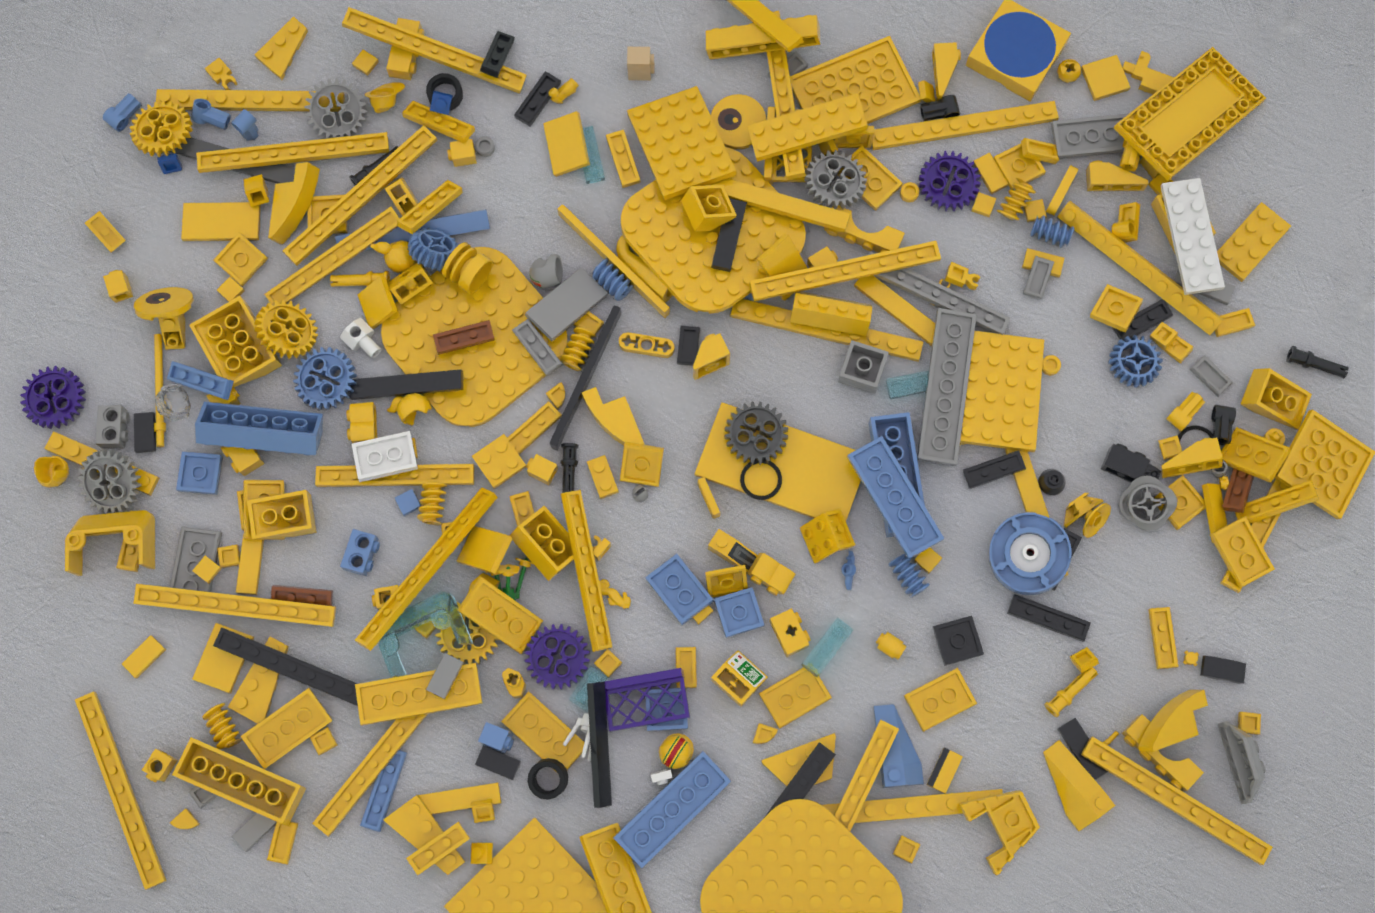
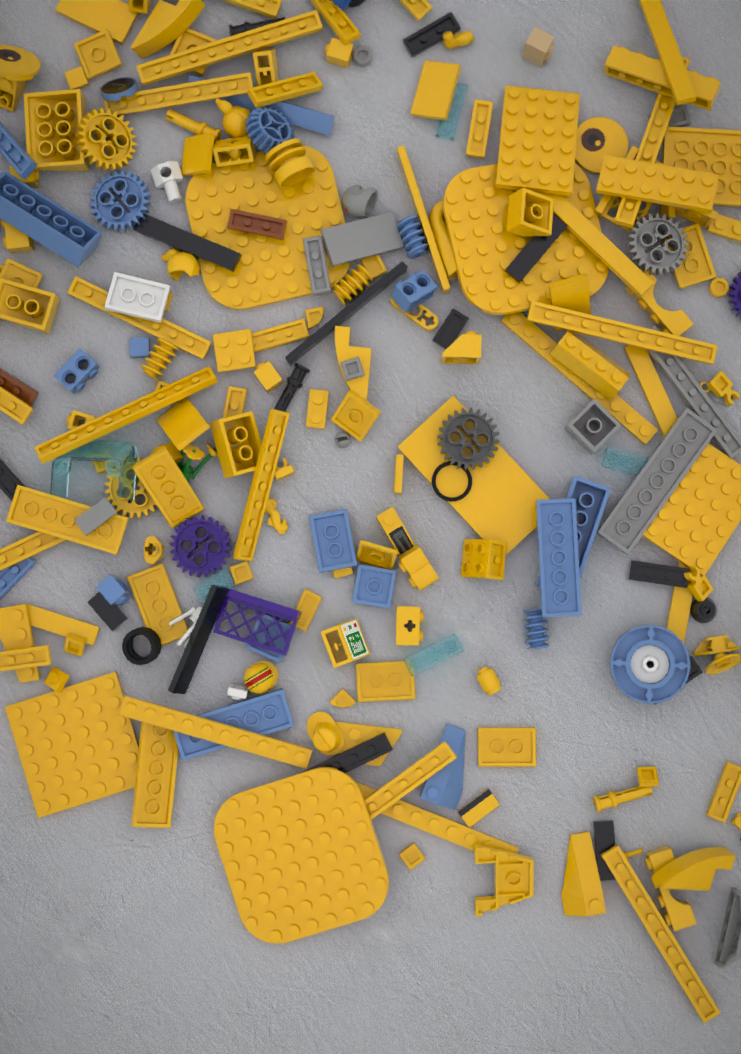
camera: 25 degrees right, 10 degrees up
(274, 278) = (118, 87): none -> tile
(362, 422) = (134, 257): yellow brick -> none
(617, 422) = (352, 369): none -> light grey tile
(637, 326) = (414, 291): none -> medium blue brick
(659, 823) = (215, 731): none -> yellow plate
(764, 774) = (325, 733): none -> yellow piece
(822, 257) = (608, 310): yellow brick -> none
(849, 570) = (487, 597): medium blue piece -> none
(928, 560) = (560, 624): yellow tile -> none
(958, 640) = (548, 705): black plate -> none
(1035, 459) = (699, 584): none -> yellow plate
(1048, 618) = (636, 725): black tile -> none

